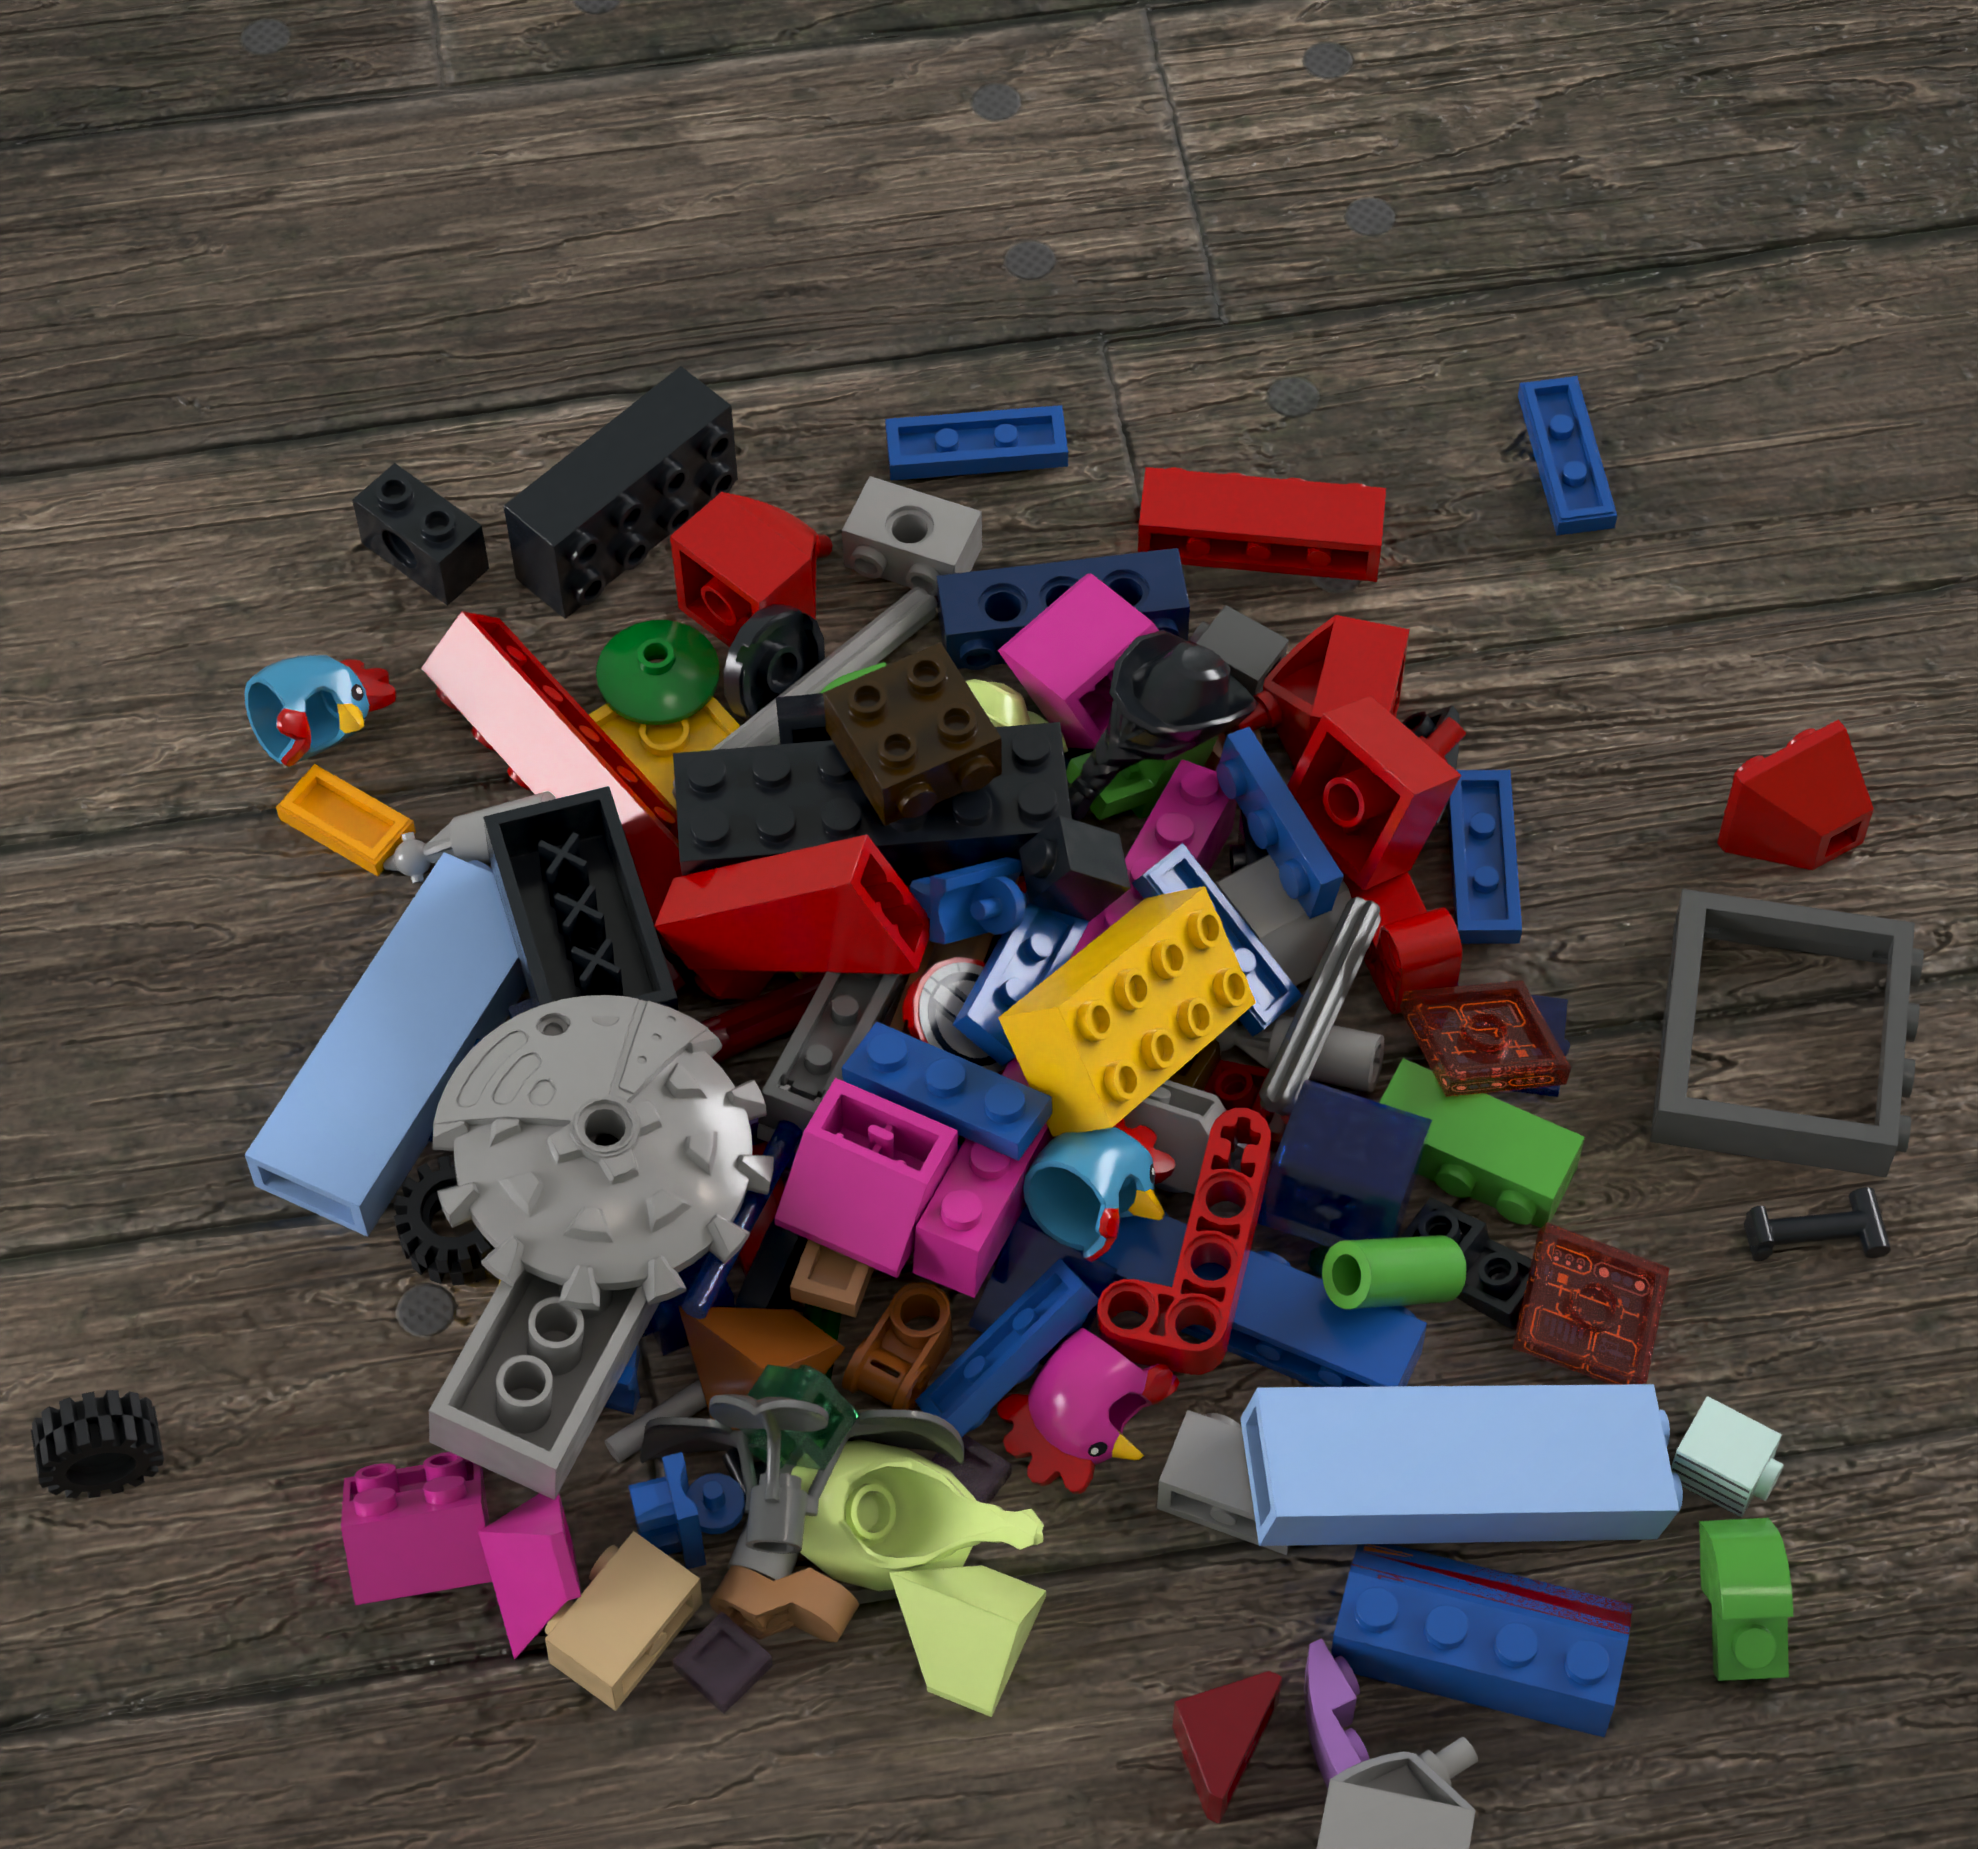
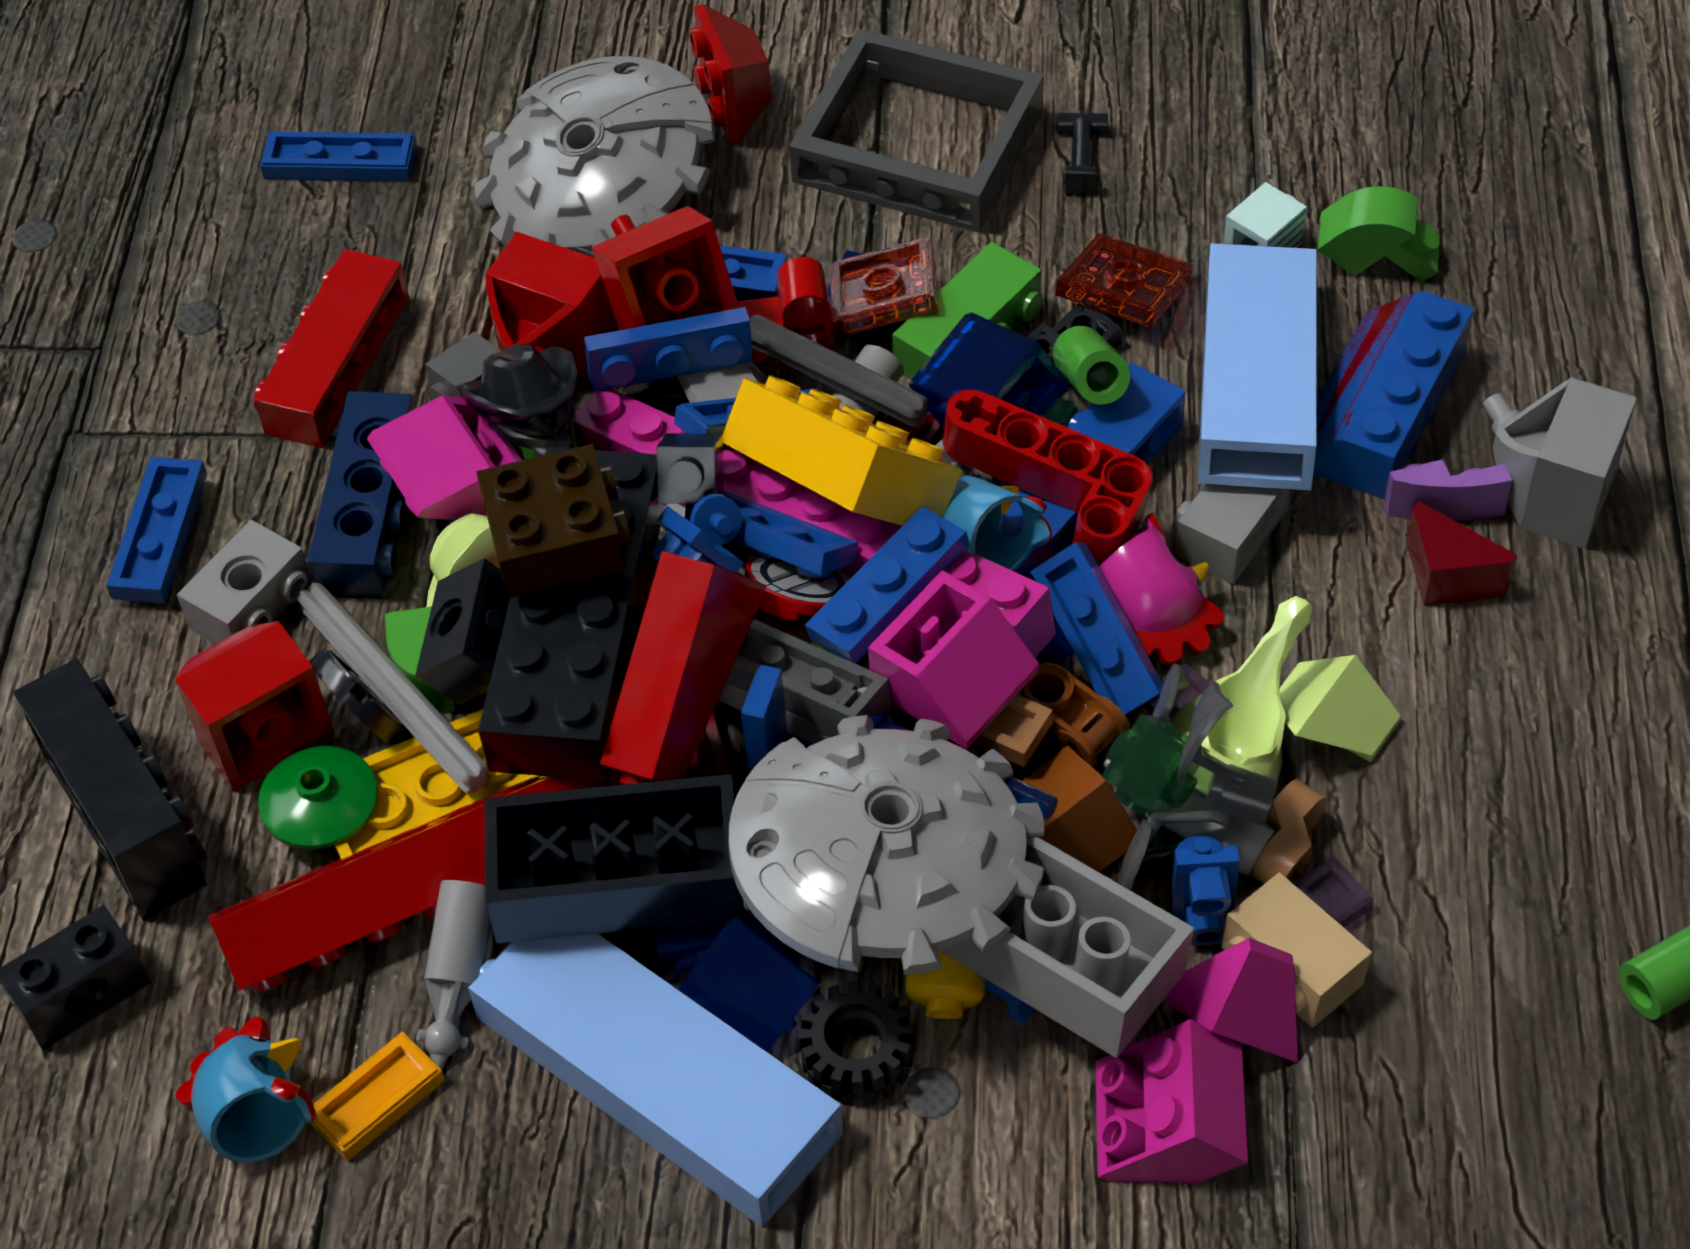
camera: 75 degrees left, 5 degrees down
(758, 1025) = (764, 715): none -> blue tile
(1615, 700) = (596, 147): none -> light grey piece

